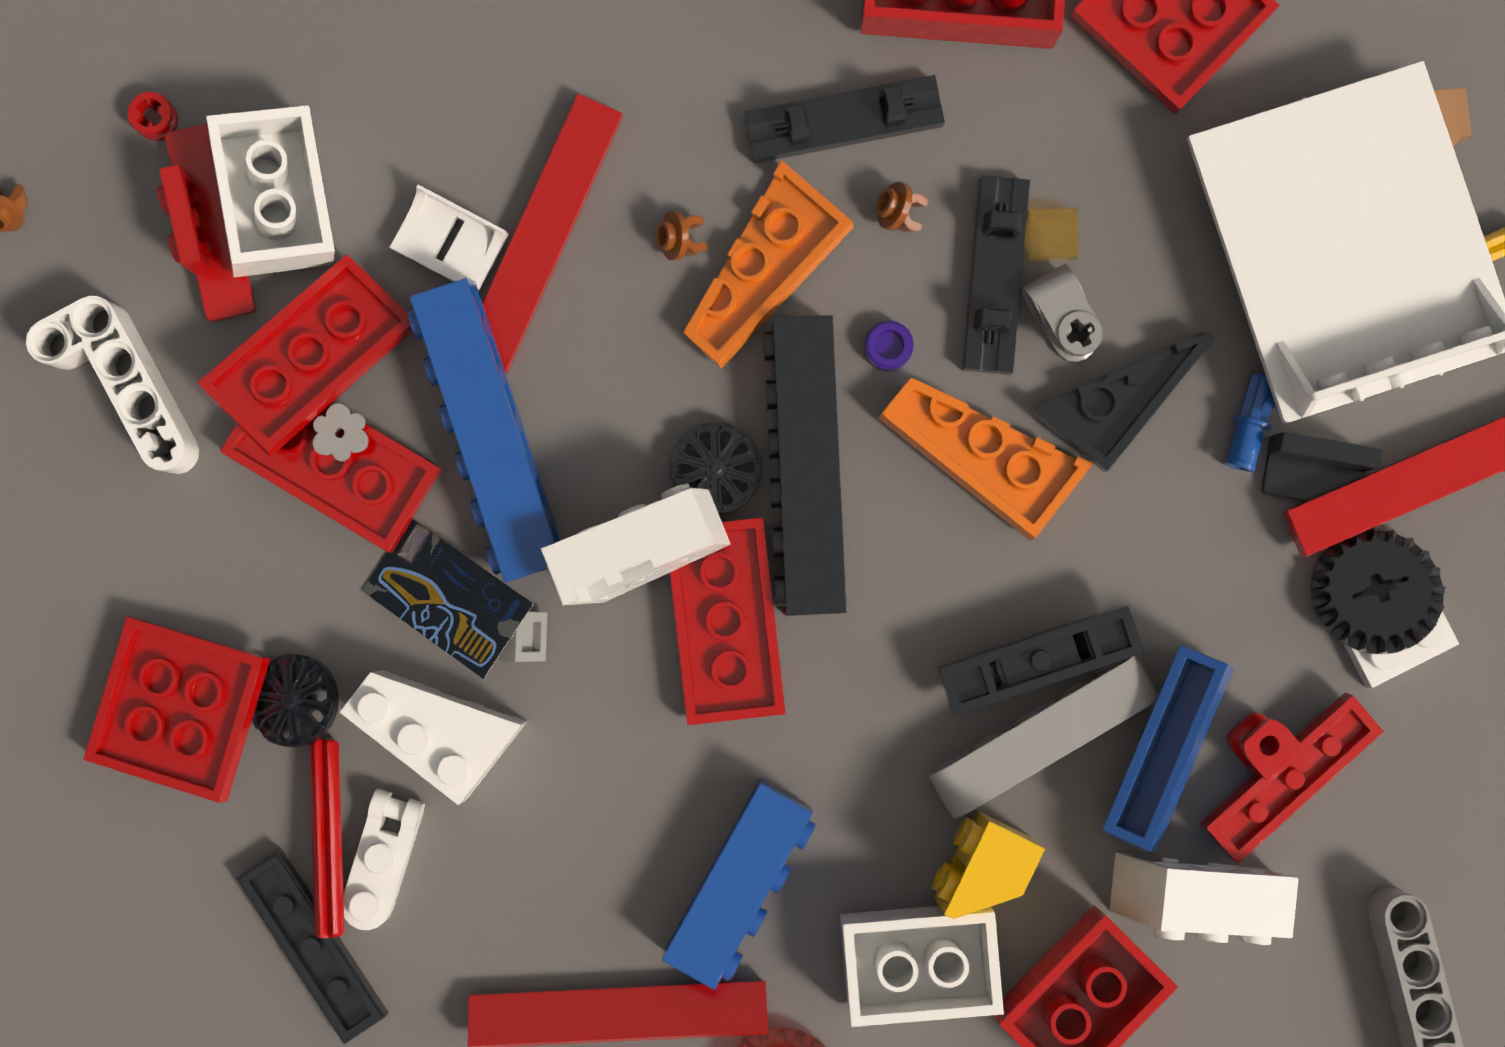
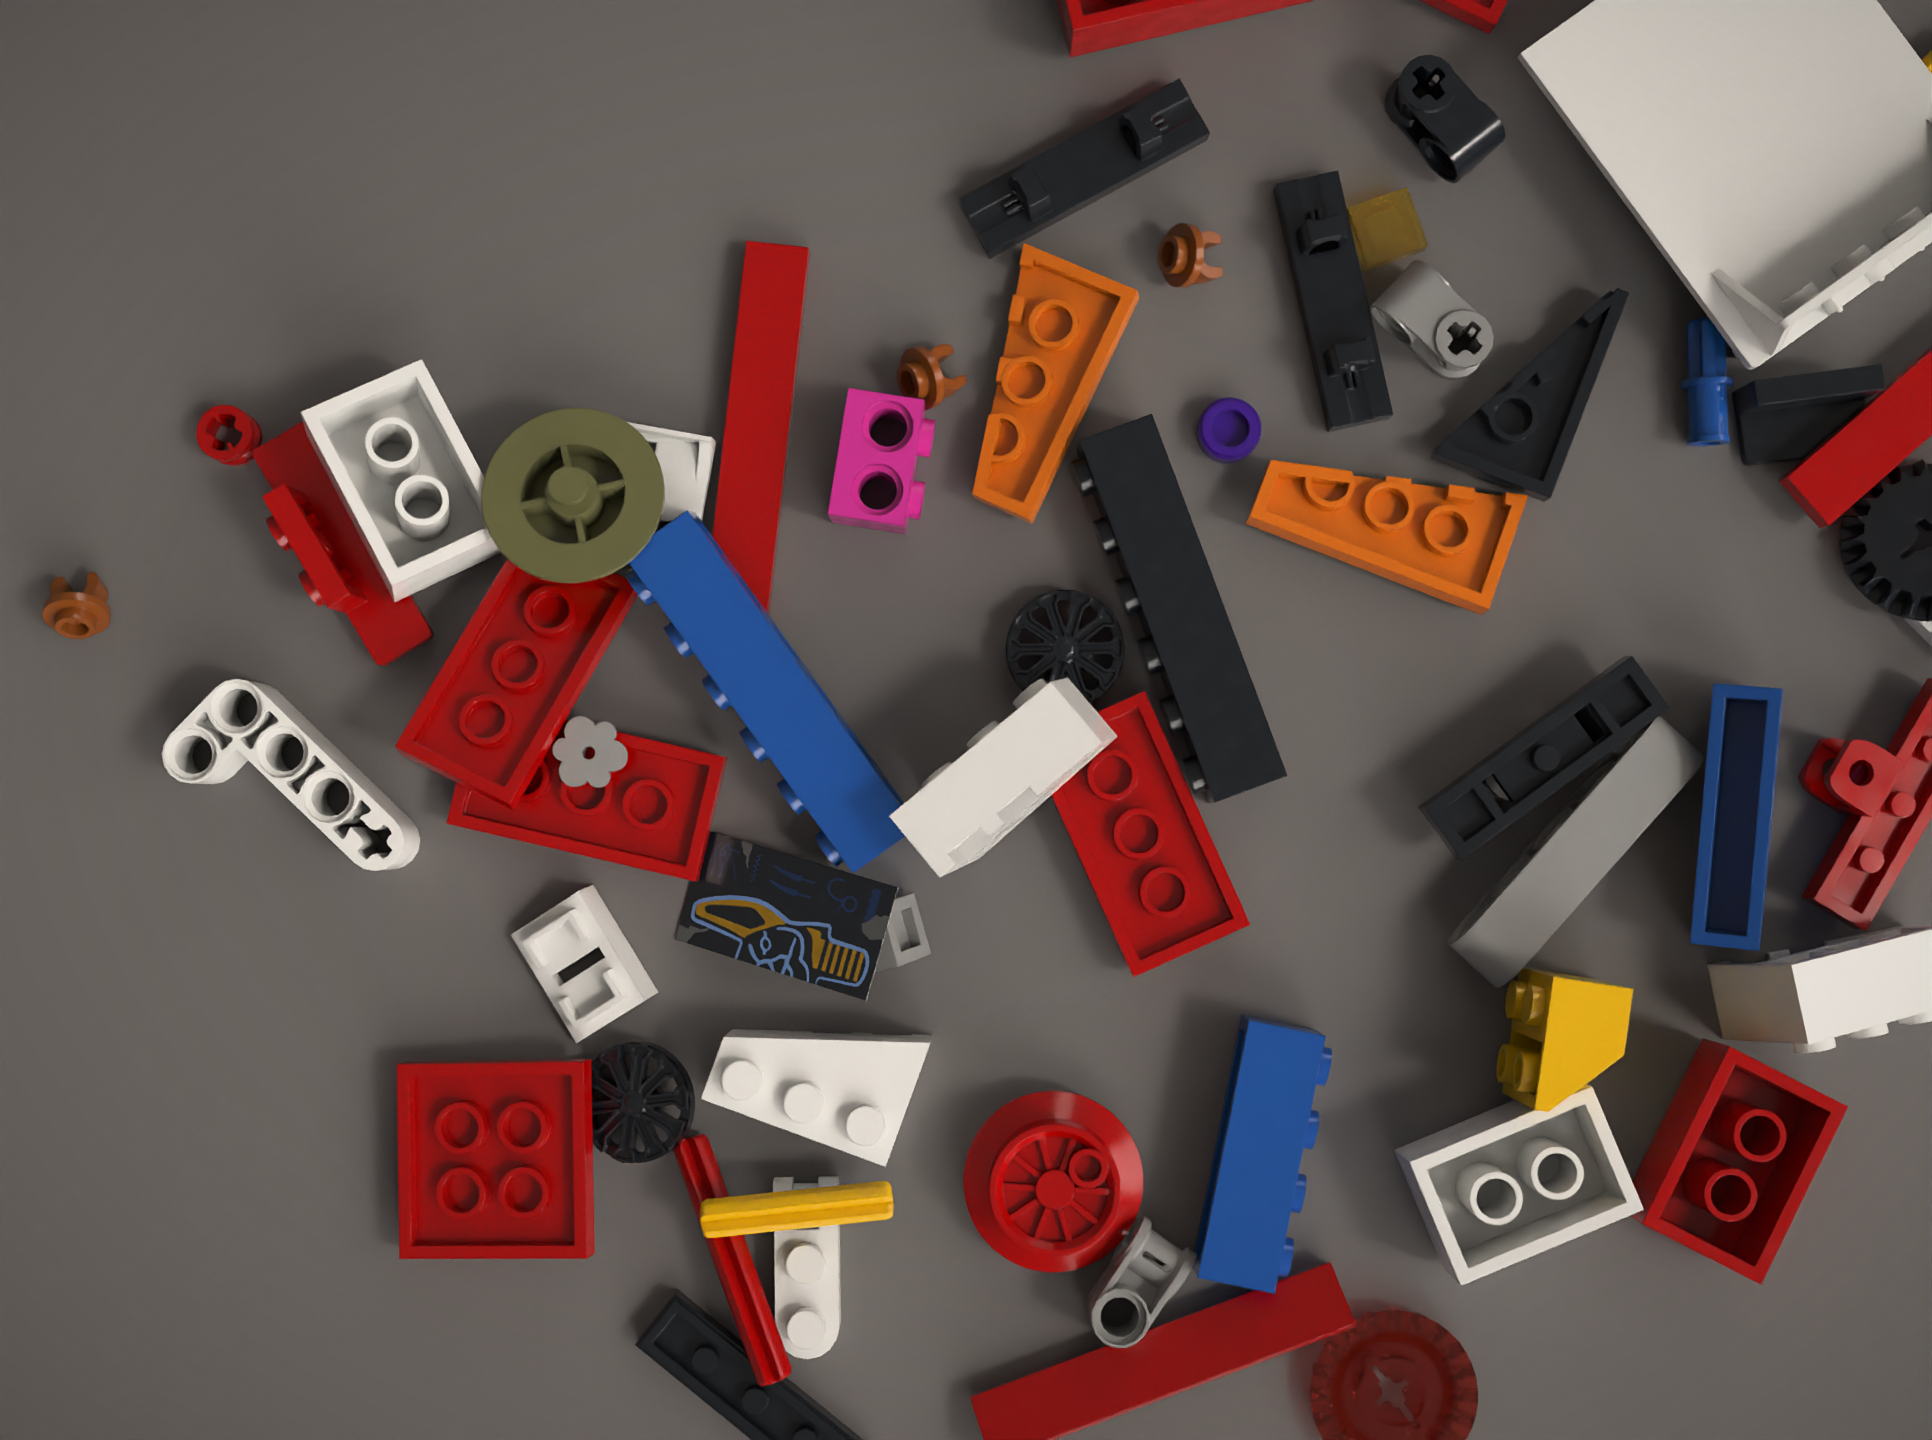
camera: 10 degrees left, 0 degrees up
(296, 610) = (566, 936): none -> white piece
(384, 816) = (796, 1209): none -> yellow axle
(387, 240) = (573, 495): none -> olive wheel
(580, 856) = (1053, 1181): none -> red wheel
(610, 283) = (864, 460): none -> dark pink brick
(620, 949) = (1139, 1280): none -> light grey piece
(1121, 172) = (1446, 124): none -> black piece

